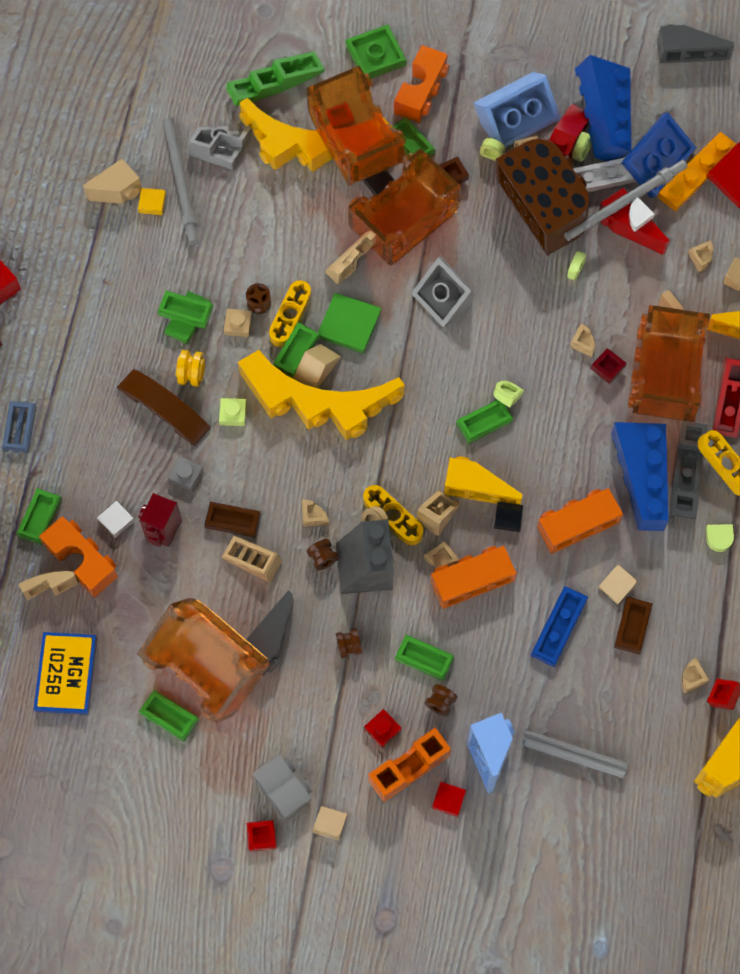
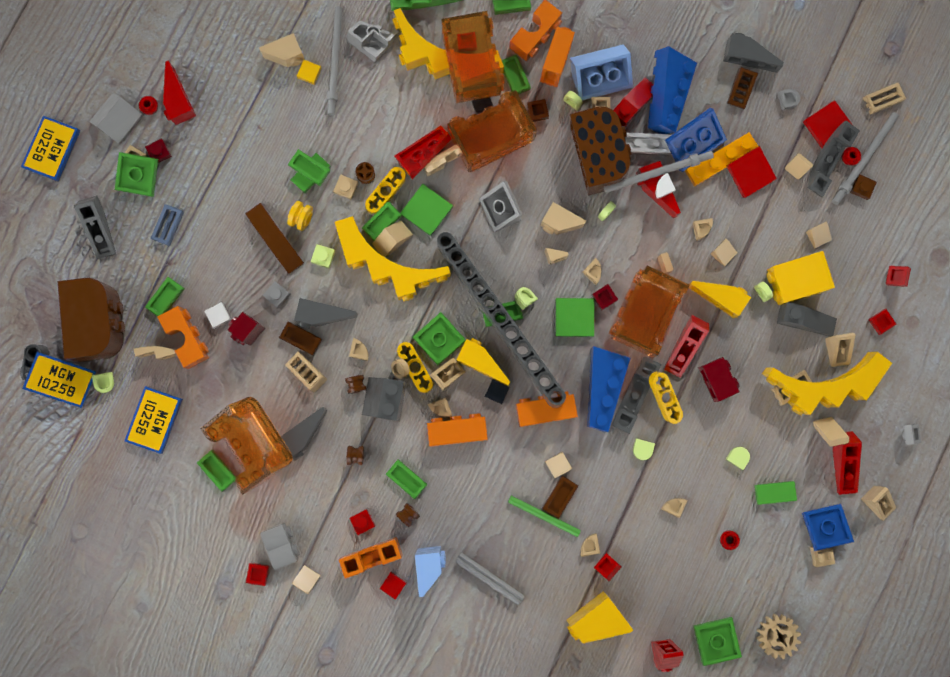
camera: 10 degrees right, 15 degrees up
(249, 480) = (317, 314): none -> dark grey slope
(324, 254) = (421, 152): none -> red wing
(413, 472) = (439, 338): none -> bright green tile
(457, 104) = (557, 56): none -> orange window
(491, 432) = (501, 328): none -> dark grey beam
(524, 290) = (560, 220): none -> tan slope
(529, 332) = (554, 256): none -> tan slope
(559, 626) = (508, 483): blue tile -> none
(578, 401) = (574, 317): none -> bright green tile
(582, 147) = (640, 117): yellowish green tile -> none
(621, 655) = (544, 516): none -> bright green bar
(696, 68) = (746, 73): none -> reddish brown slope

